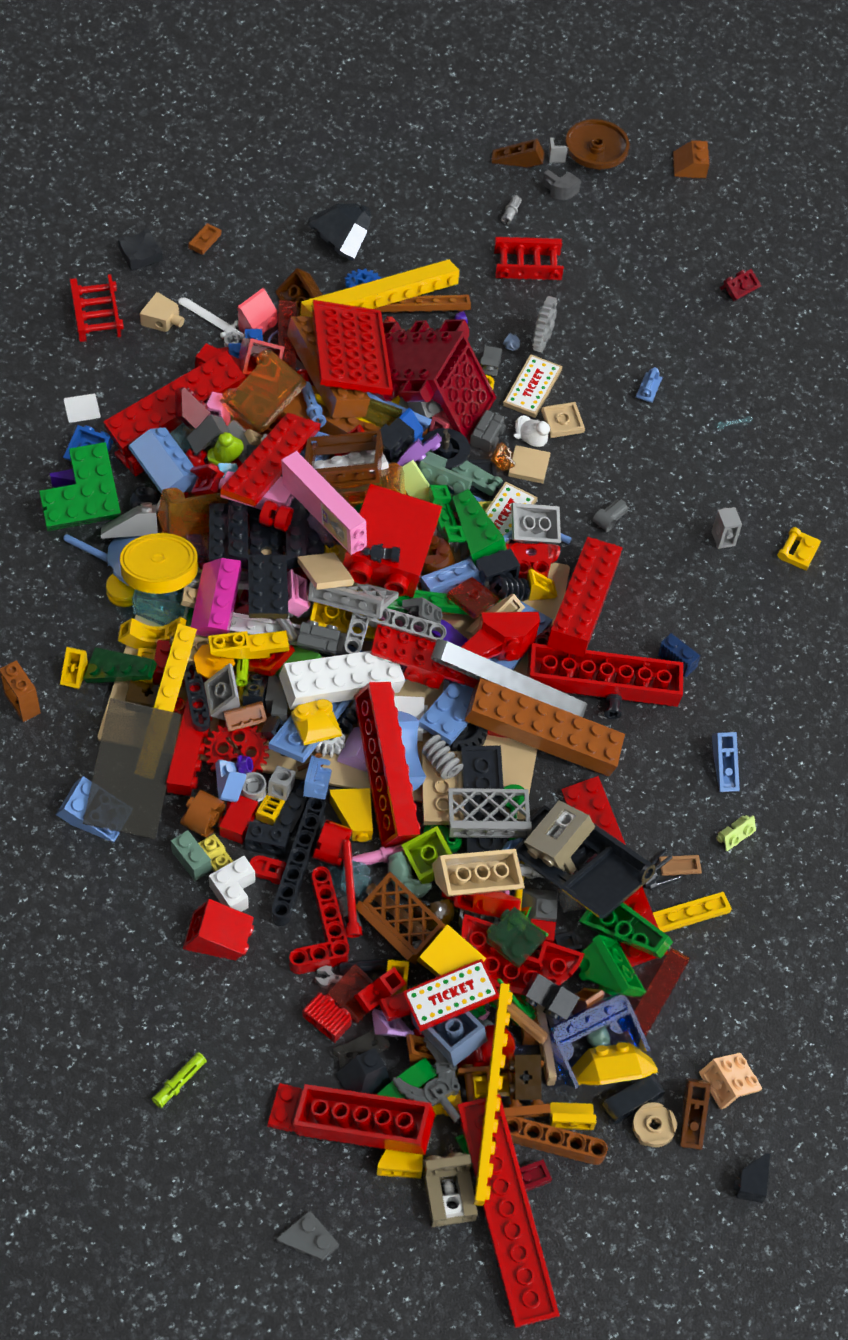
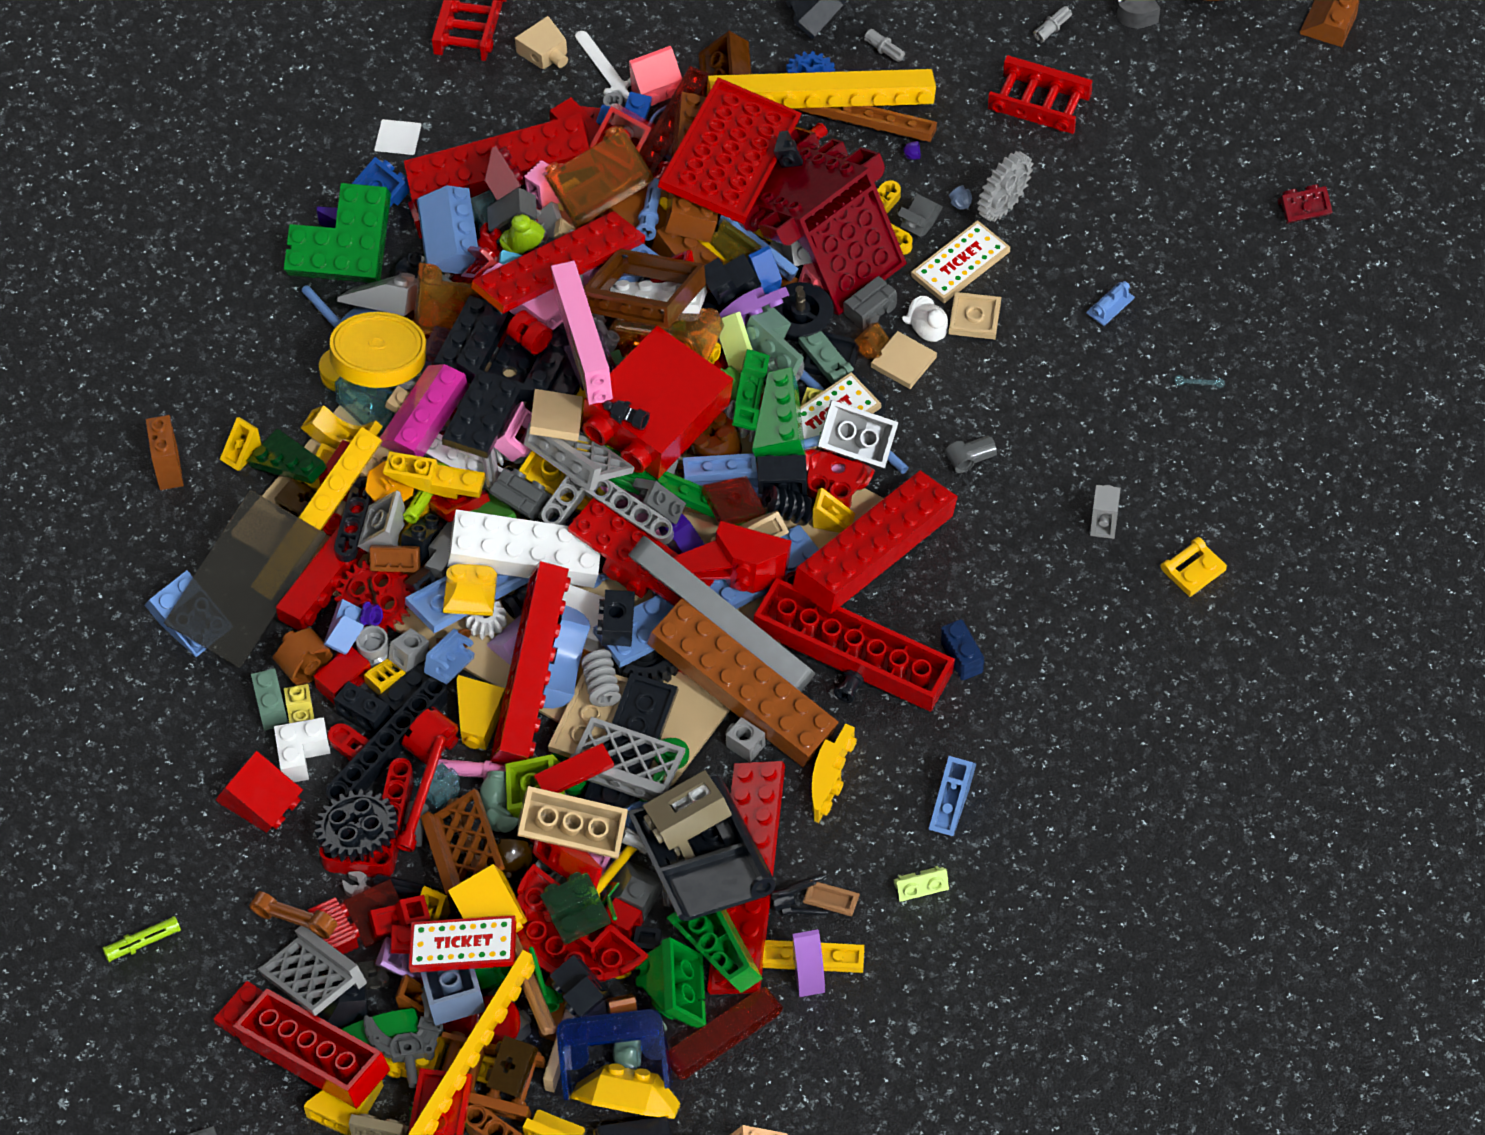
camera: 30 degrees right, 0 degrees up
(267, 1018) = (319, 922): none -> dark orange piece
(312, 931) = (356, 825): none -> black gear
(344, 1043) = (325, 958): none -> light grey fence
(391, 339) = (786, 151): none -> black bracket
(403, 252) = (884, 45): none -> light grey axle
(437, 708) = (617, 618): none -> black brick
(460, 832) = (575, 770): none -> red tile
(562, 776) = (747, 748): none -> light grey brick
(631, 776) = (827, 771): none -> yellow slope
(698, 919) = (808, 963): none -> medium lavender slope

